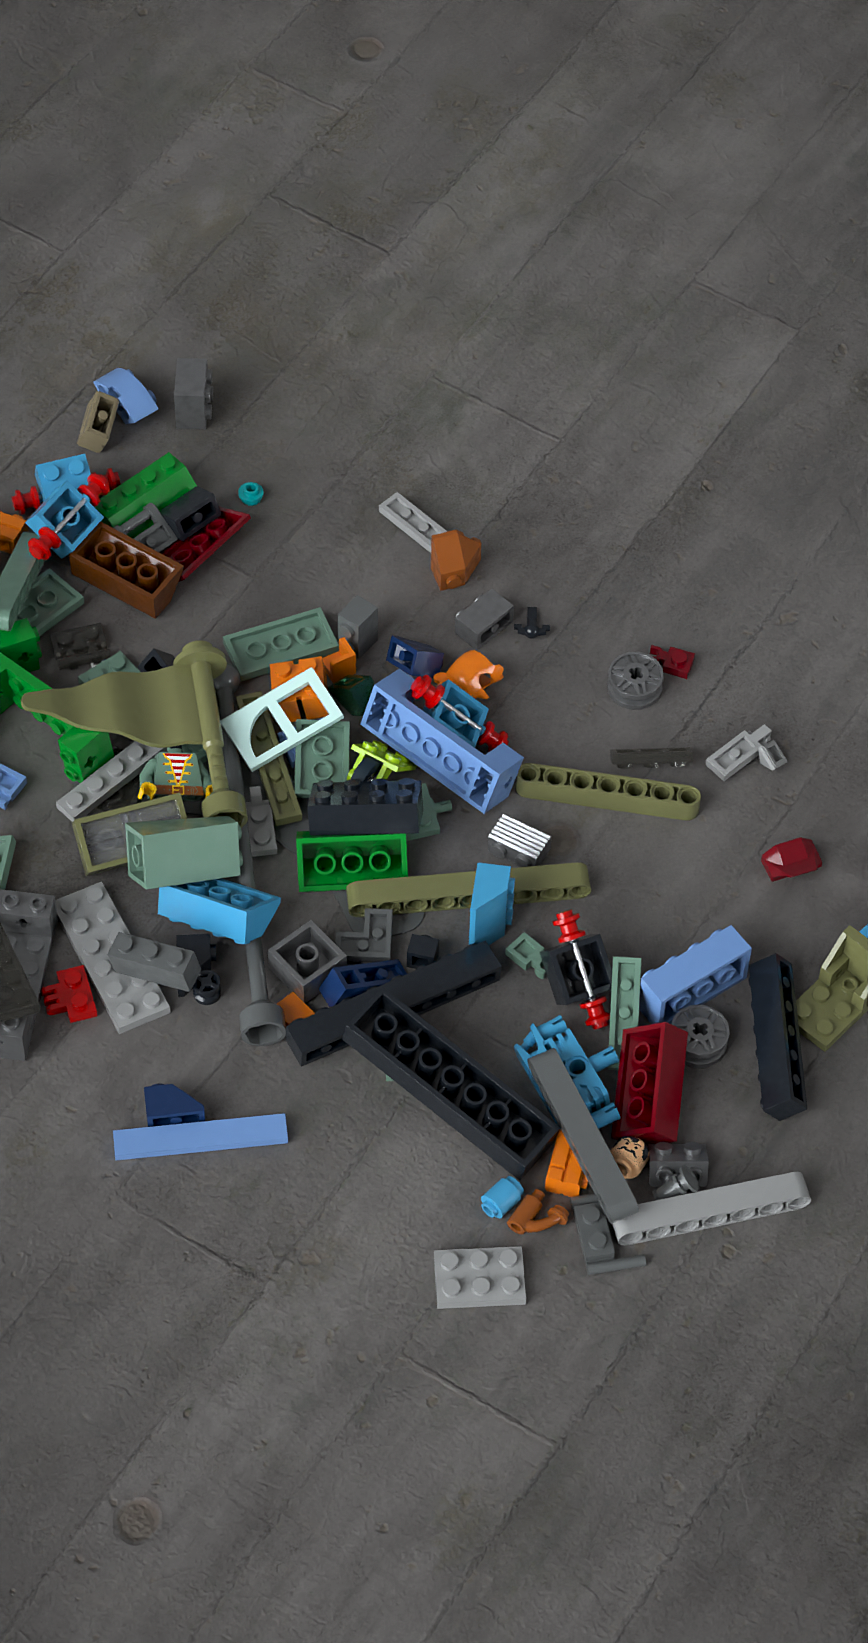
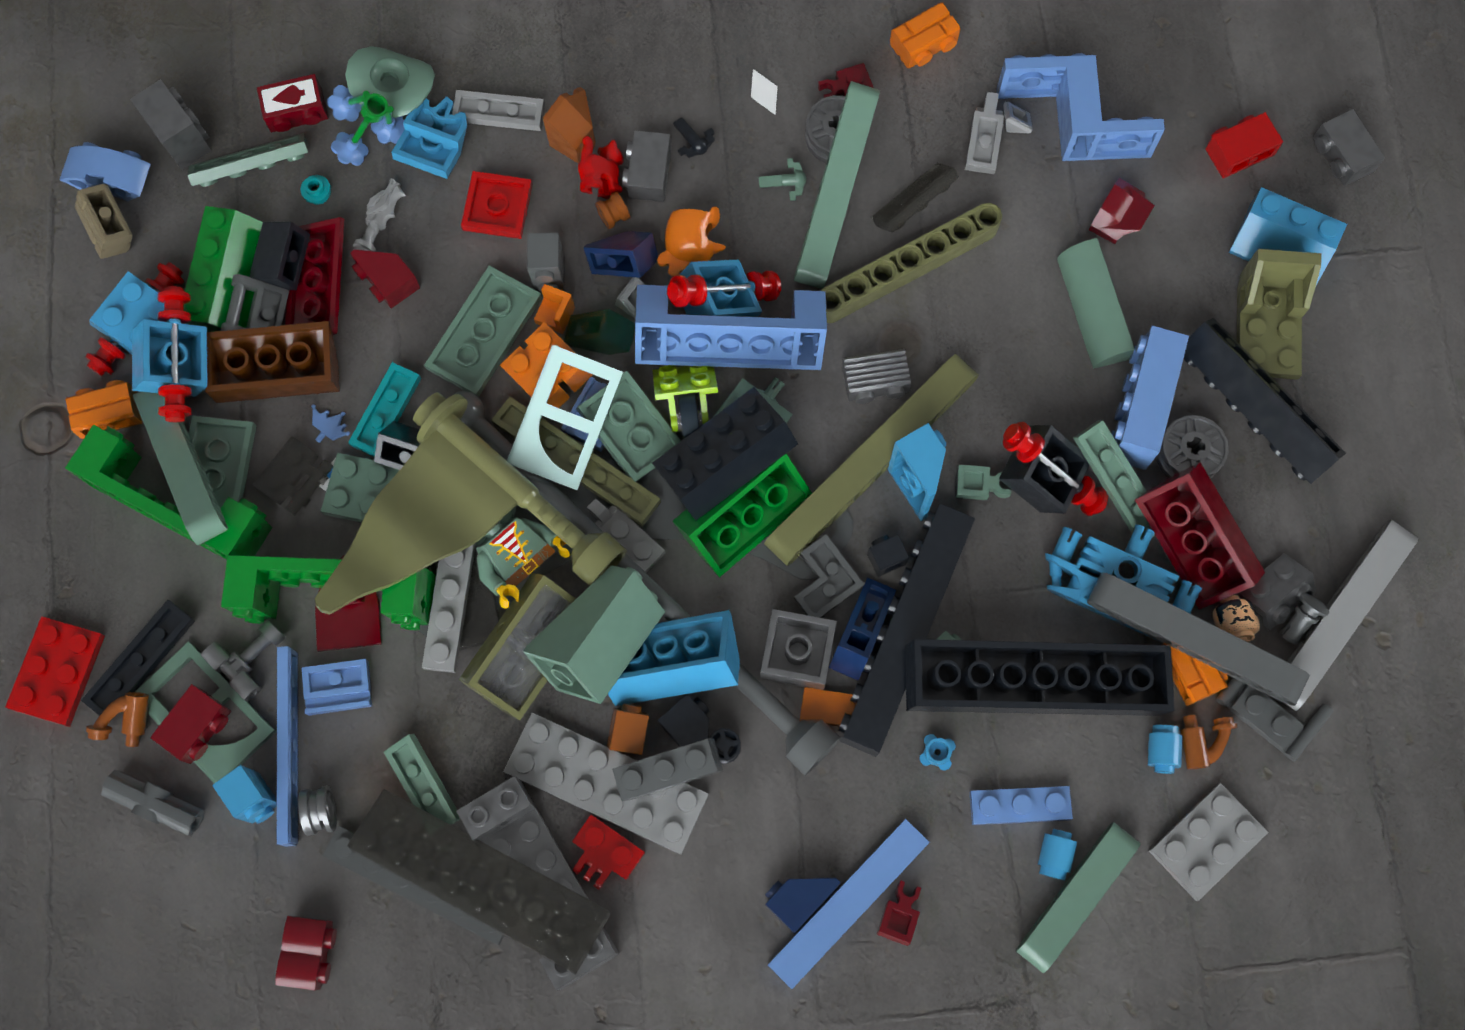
camera: 35 degrees left, 20 degrees up
(35, 750) = (350, 626): none -> dark red shield
(129, 633) = (328, 425): none -> medium blue piece
(154, 926) = (628, 729): none -> dark orange brick
(175, 641) = (385, 407): none -> teal plate
(213, 445) = (238, 163): none -> sand green plate
(226, 1167) = (898, 918): none -> dark red plate
(248, 570) = (387, 273): none -> dark red slope
(280, 531) = (378, 212): none -> light grey piece
(282, 432) = (292, 103): none -> brick
(319, 458) = (374, 110): none -> medium blue plant
(342, 1085) = (945, 747): none -> dark azure plate
(354, 509) = (432, 138): none -> dark azure plate
(355, 456) = (395, 76): none -> sand green hat
(356, 1240) = (1078, 897): none -> sand green beam
(360, 575) = (496, 204): none -> red plate
(366, 1206) = (1057, 854): none -> dark azure brick
(371, 1164) = (1020, 805): none -> medium blue plate
(434, 629) = (612, 210): none -> dark orange wheel
(447, 599) = (600, 170): none -> red animal
(580, 693) = (797, 178): none -> sand green piece
(599, 707) = (836, 185): none -> sand green beam
(610, 629) = (764, 91): none -> white sticker
(719, 898) = (1095, 304): none -> sand green brick
(754, 664) = (925, 36): none -> orange brick
(811, 782) = (1077, 95): none -> medium blue bracket

